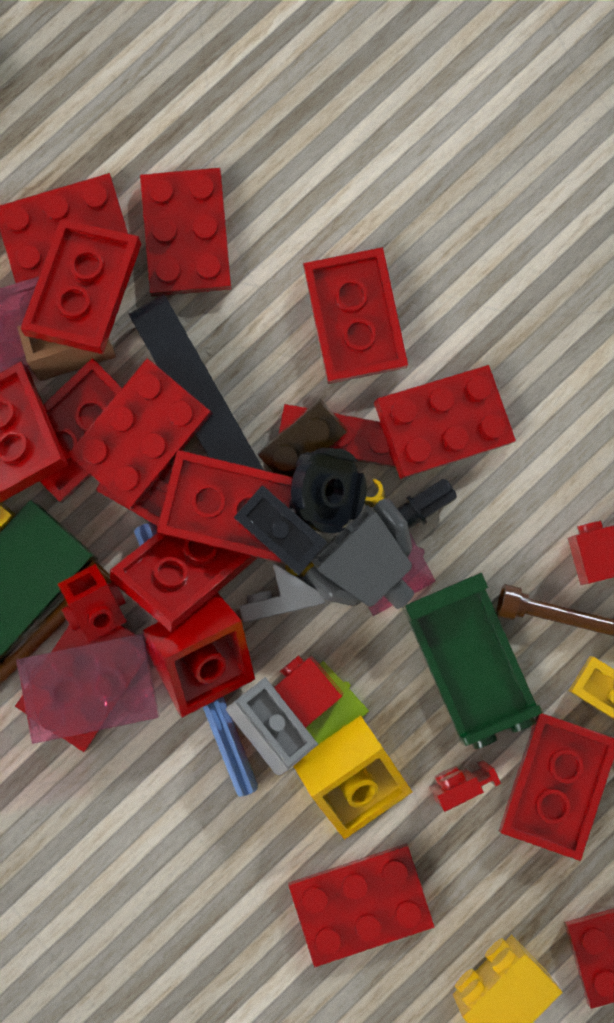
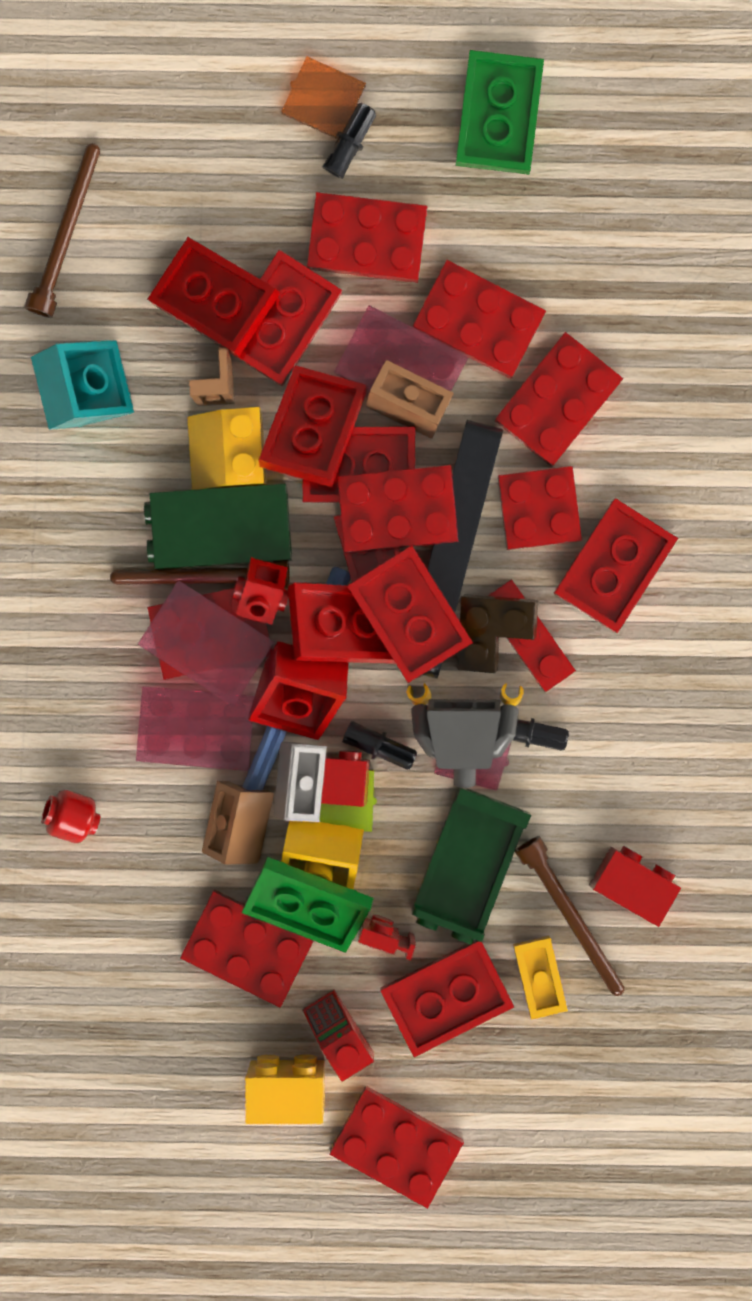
camera: 50 degrees right, 5 degrees up
(81, 286) = (453, 375): red plate -> none
(113, 939) = (70, 816): none -> red head
(146, 768) = (194, 729): none -> clear pink plate
(252, 328) = (539, 508): none -> red plate
(255, 811) = (237, 824): none -> medium nougat panel
(280, 530) = (427, 663): black plate -> none
(293, 597) = (395, 711): light grey slope -> none
(308, 636) = (379, 745): none -> black axle
(309, 485) = (471, 654): black plate -> none
(374, 821) = (307, 905): none -> green plate
(444, 421) = (605, 693): red plate -> none
(504, 903) = (338, 1035): none -> red slope

